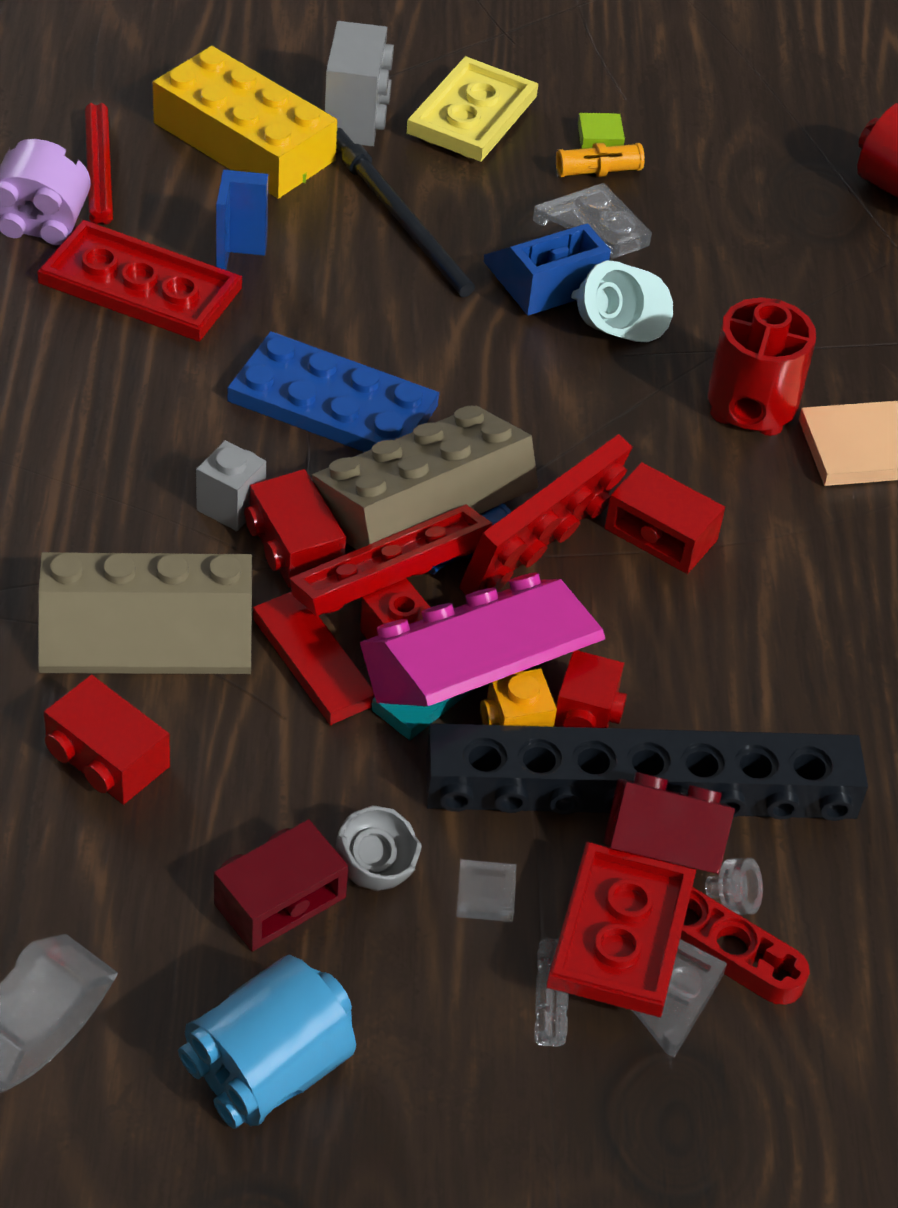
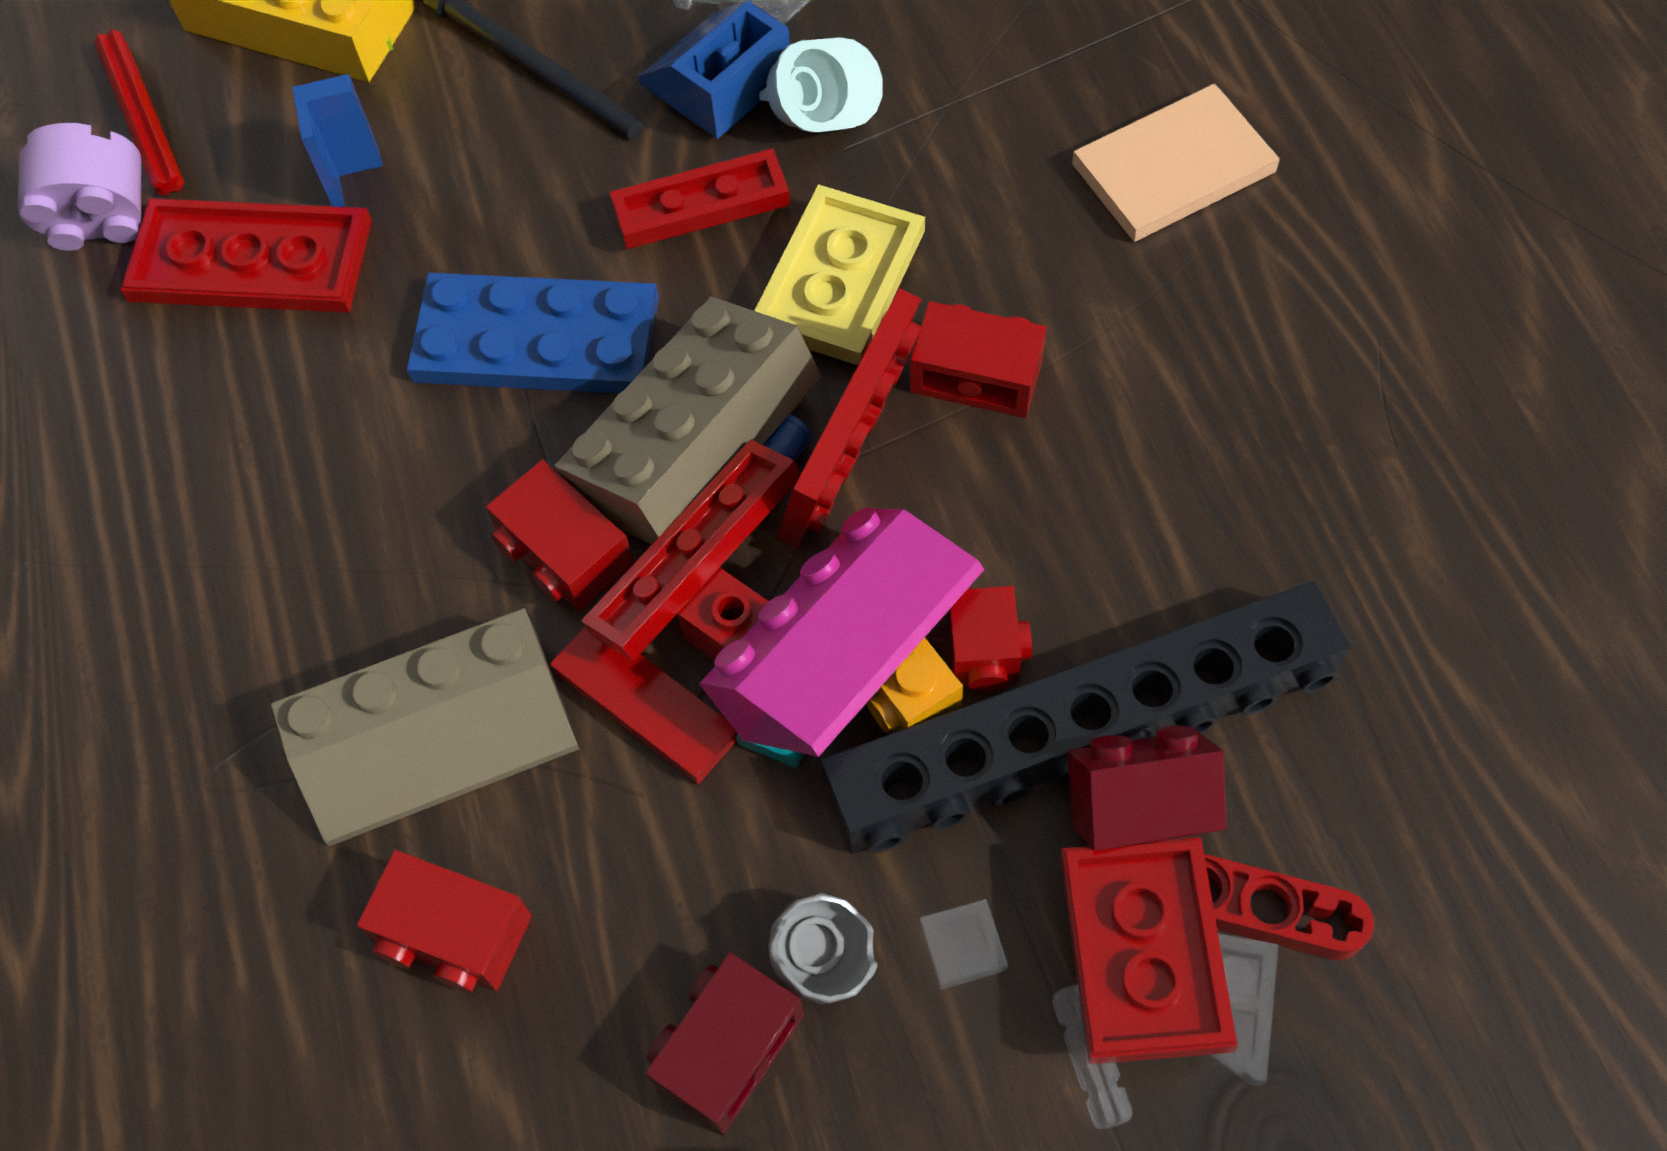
camera: 10 degrees left, 15 degrees up
(225, 483) = (455, 506): light grey brick -> none
(497, 348) = (700, 198): none -> red plate
(584, 418) = (842, 271): none -> light yellow plate
(737, 885) = (1249, 831): clear tile -> none
(761, 364) = (1015, 117): red cylinder -> none

